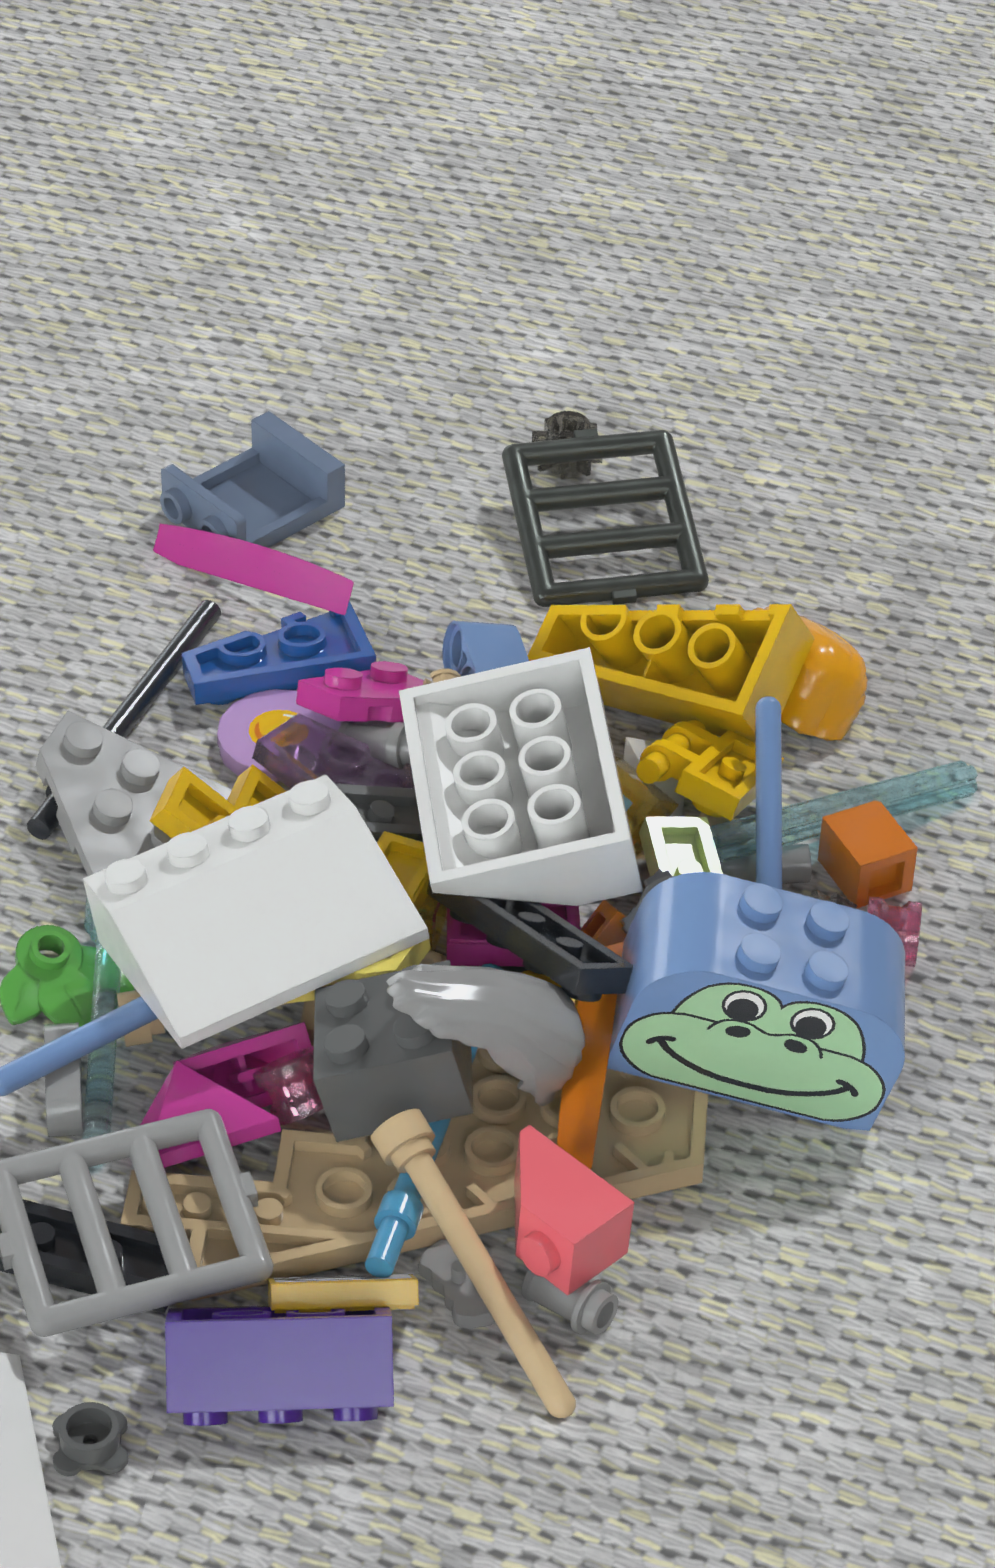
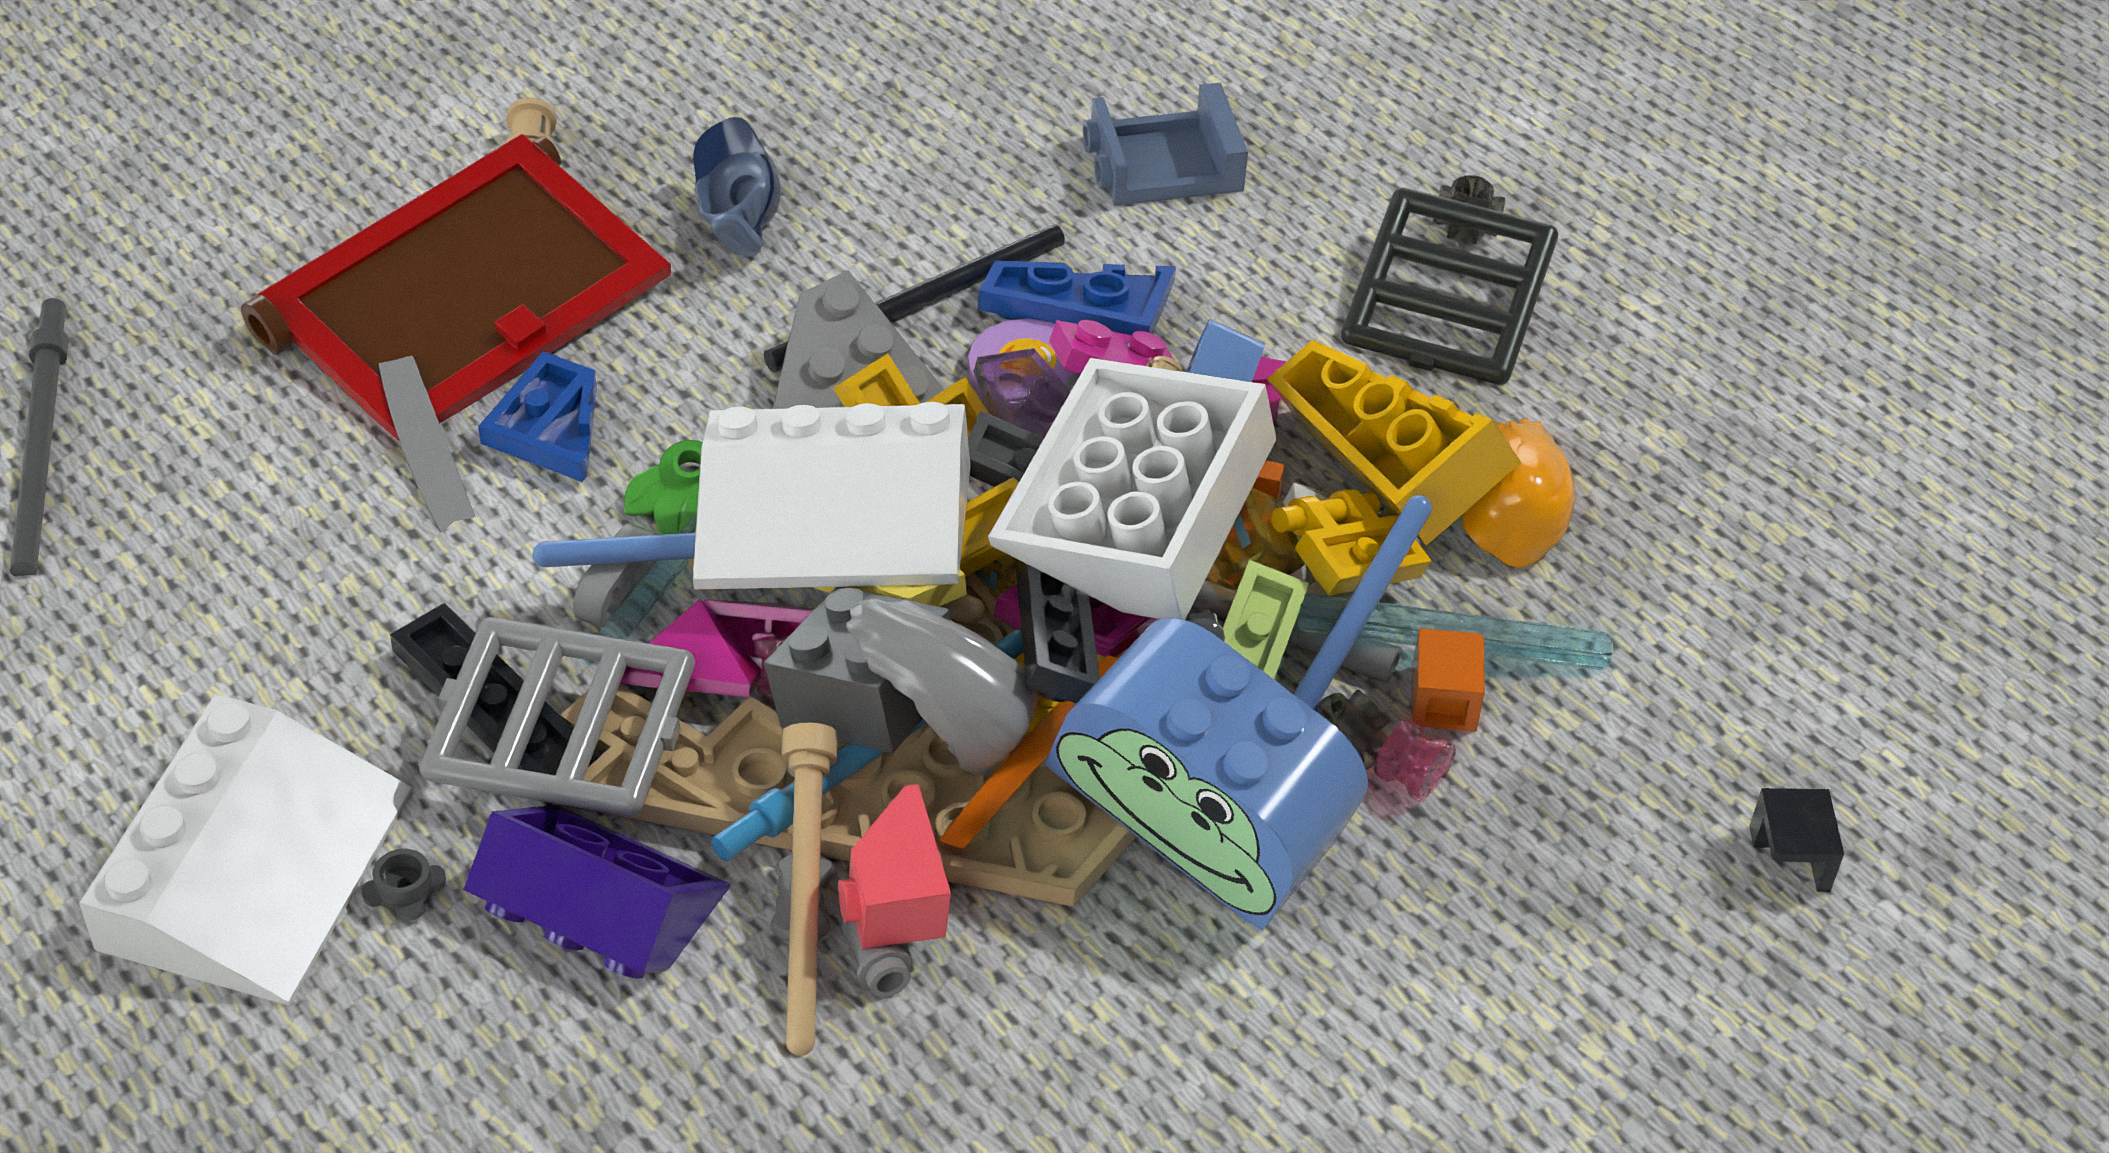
camera: 30 degrees right, 5 degrees up
(254, 566) = (1114, 212): dark pink sticker -> none
(342, 1292) = (687, 857): yellow tile -> none

